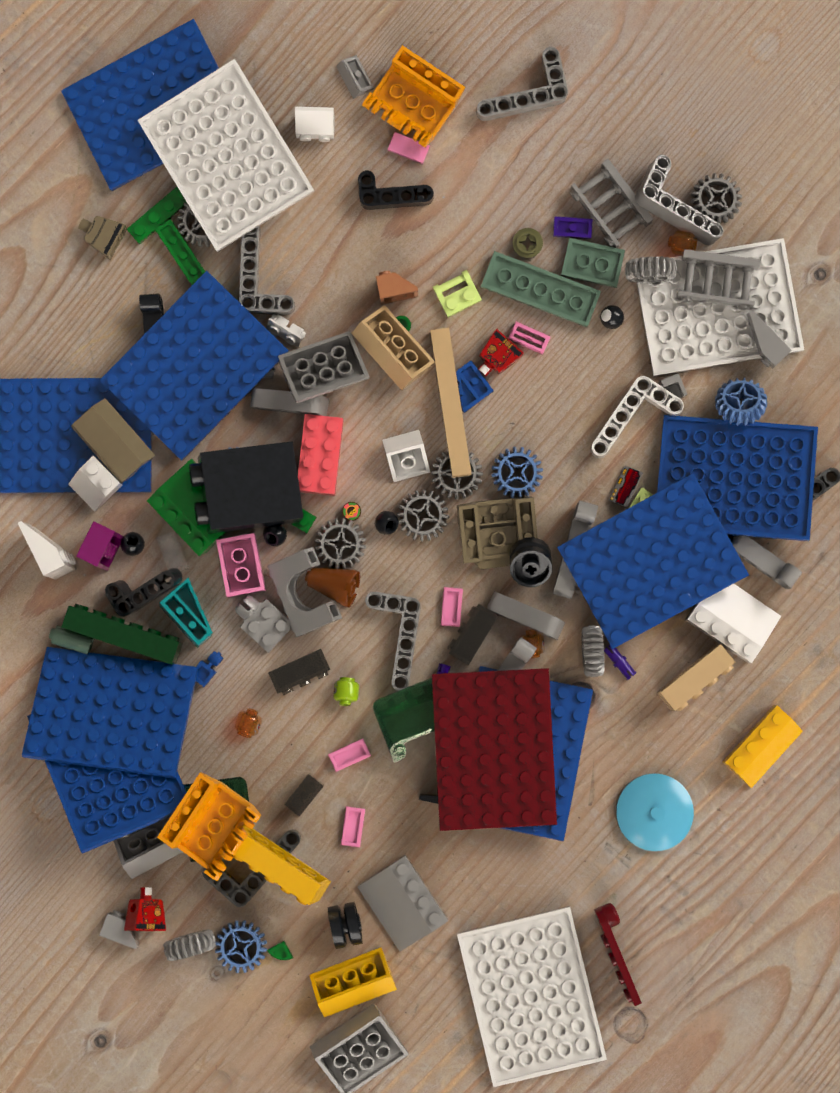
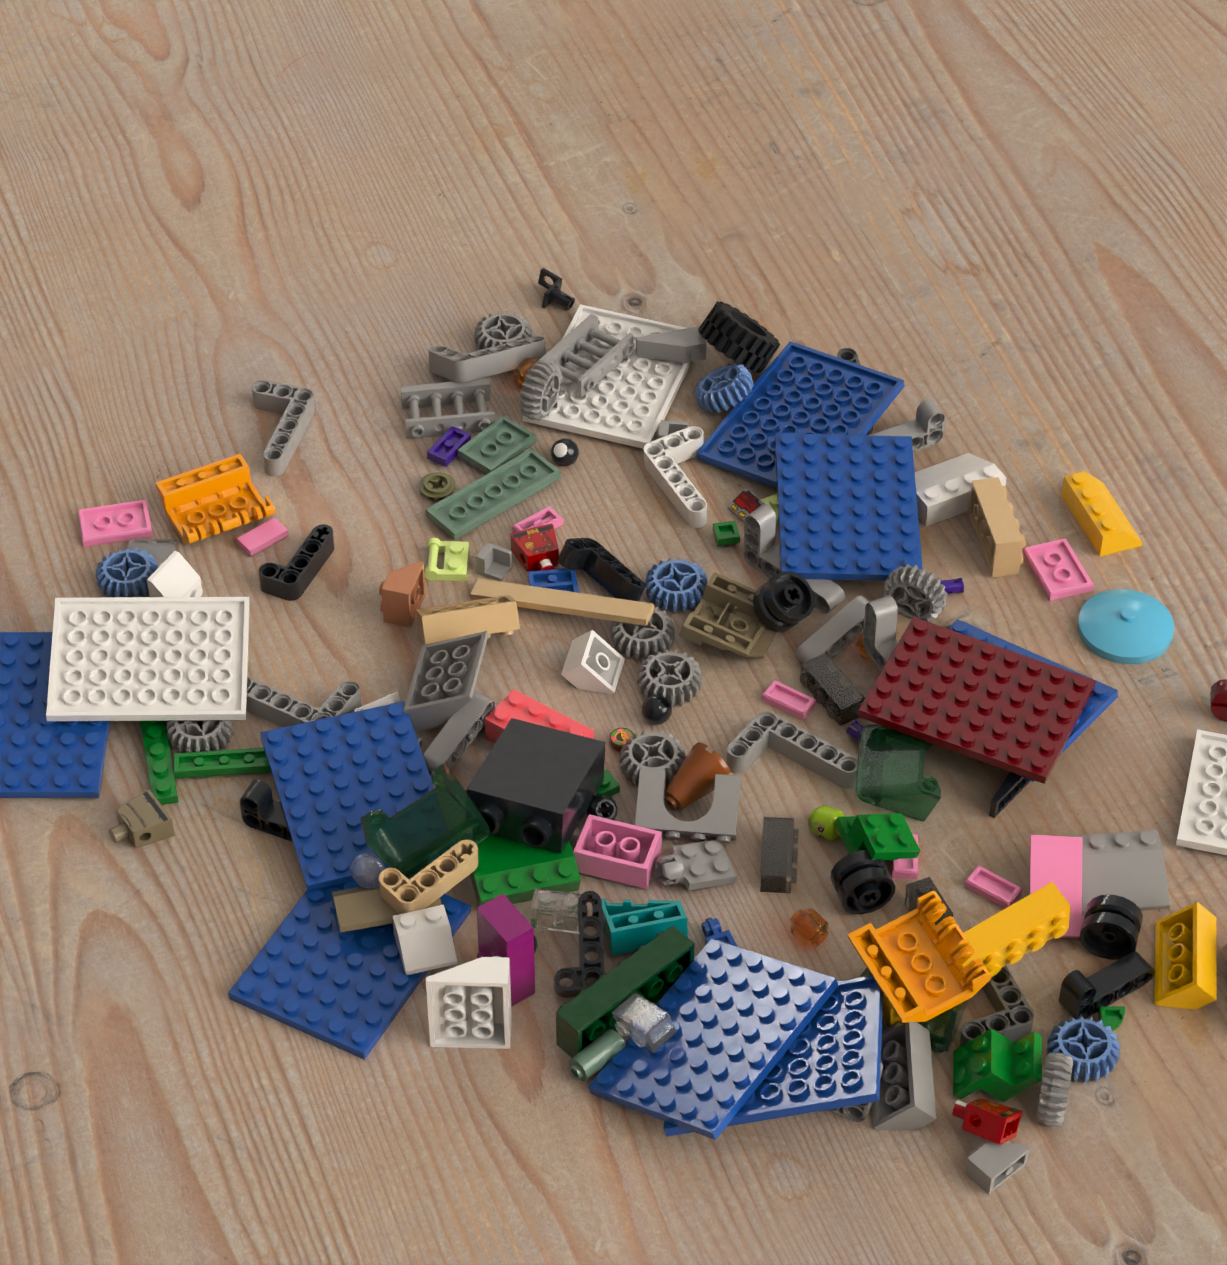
camera: 65 degrees left, 40 degrees down
(97, 662) = (643, 1022): none -> clear brick
(125, 415) = (366, 870): none -> clear head
(136, 464) = (459, 860): none -> tan beam
(163, 435) = (426, 826): none -> clear green windscreen
(192, 899) = (997, 1065): none -> green bracket
(294, 745) = (862, 883): none -> black wheel
(301, 939) = (1085, 995): none -> black beam
(321, 74) = (125, 573): none -> medium blue gear
(335, 736) = (881, 834): none -> green bracket
(363, 872) = (1059, 861): none -> bright pink tile
(365, 34) = (115, 523): none -> bright pink tile
(469, 330) = (494, 561): none -> light grey panel
(497, 415) = (602, 567): none -> black beam
(591, 480) = (726, 533): none -> green plate
(688, 737) = (1057, 569): none -> bright pink tile
(779, 384) = (739, 337): none -> black tyre
(786, 212) = (554, 291): none -> black bracket

